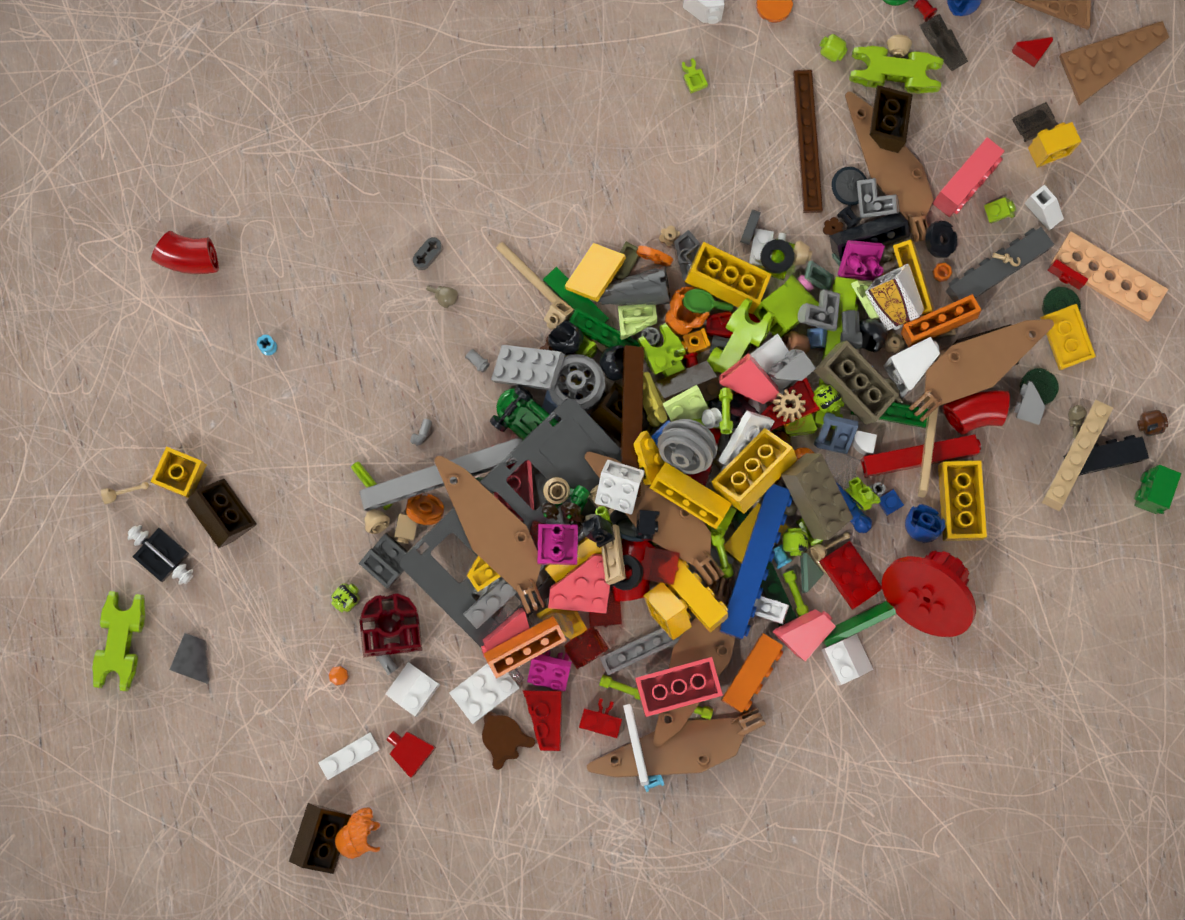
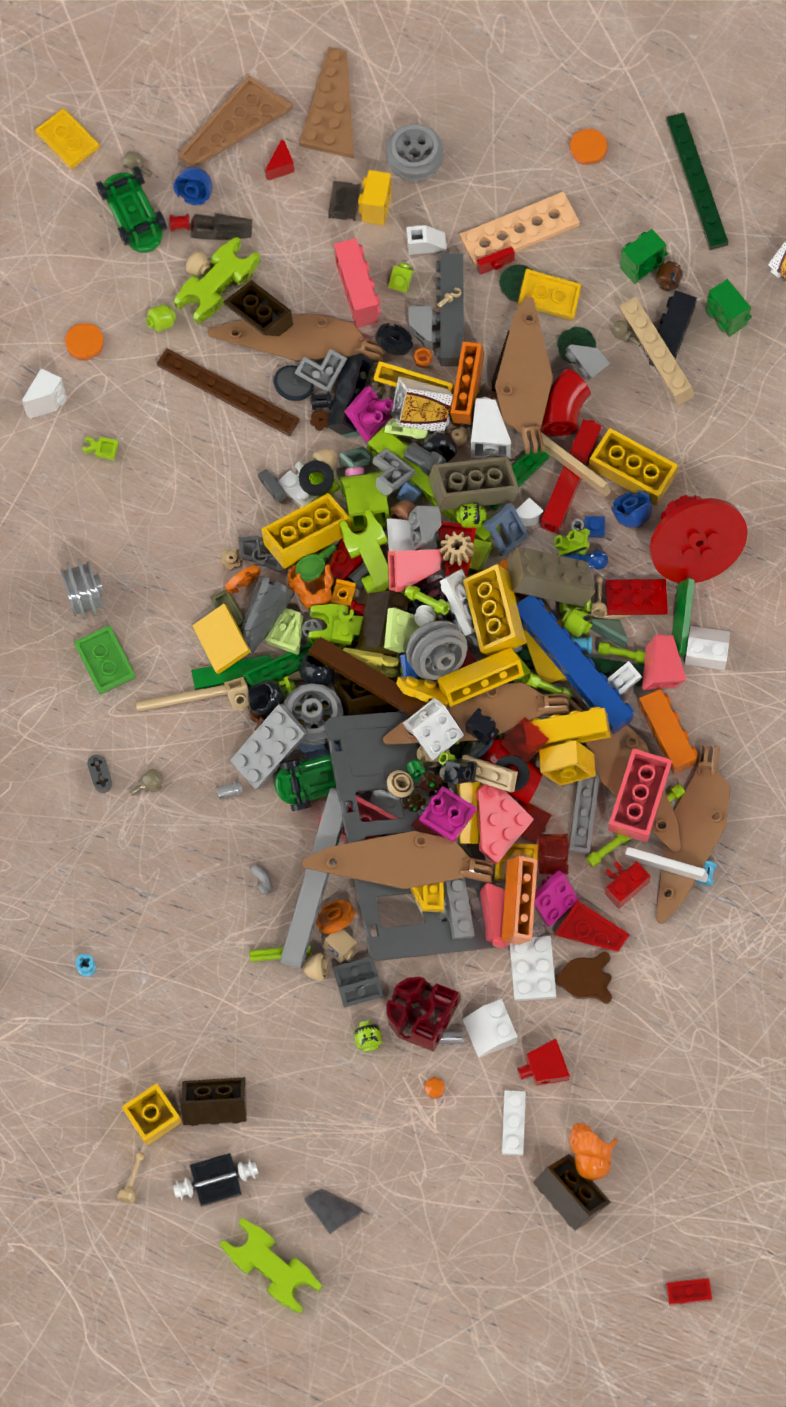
camera: 50 degrees left, 10 degrees down
(520, 195) = (104, 660): none -> bright green plate
(561, 138) = (82, 588): none -> light grey wheel
(970, 251) = (421, 324): none -> light grey slope
(1104, 159) = (407, 166): none -> light grey wheel
(1155, 390) = (643, 255): none -> green brick

